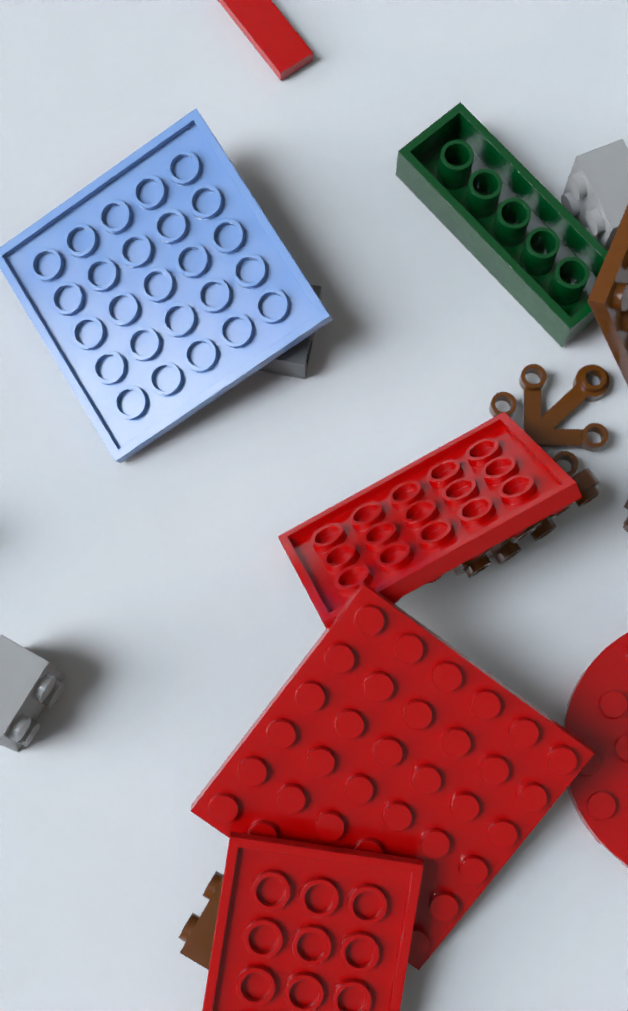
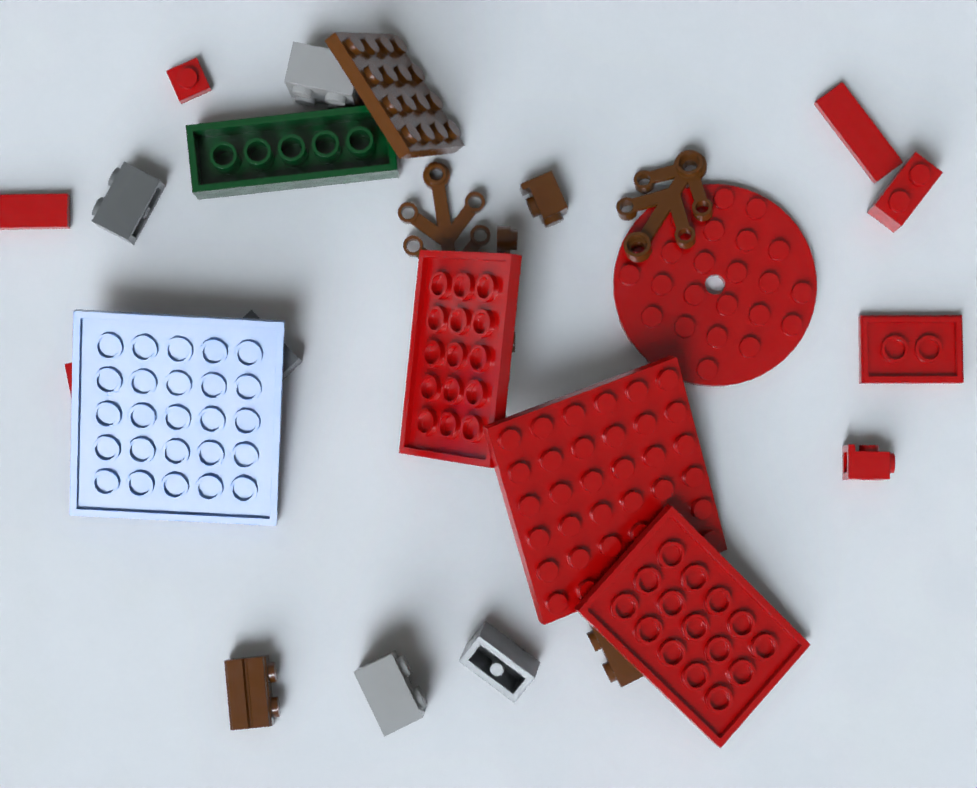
camera: 55 degrees left, 10 degrees up
(120, 794) = (499, 662): none -> dark grey brick
(344, 110) = (127, 202): none -> dark grey brick
(505, 91) = (188, 80): none -> red plate

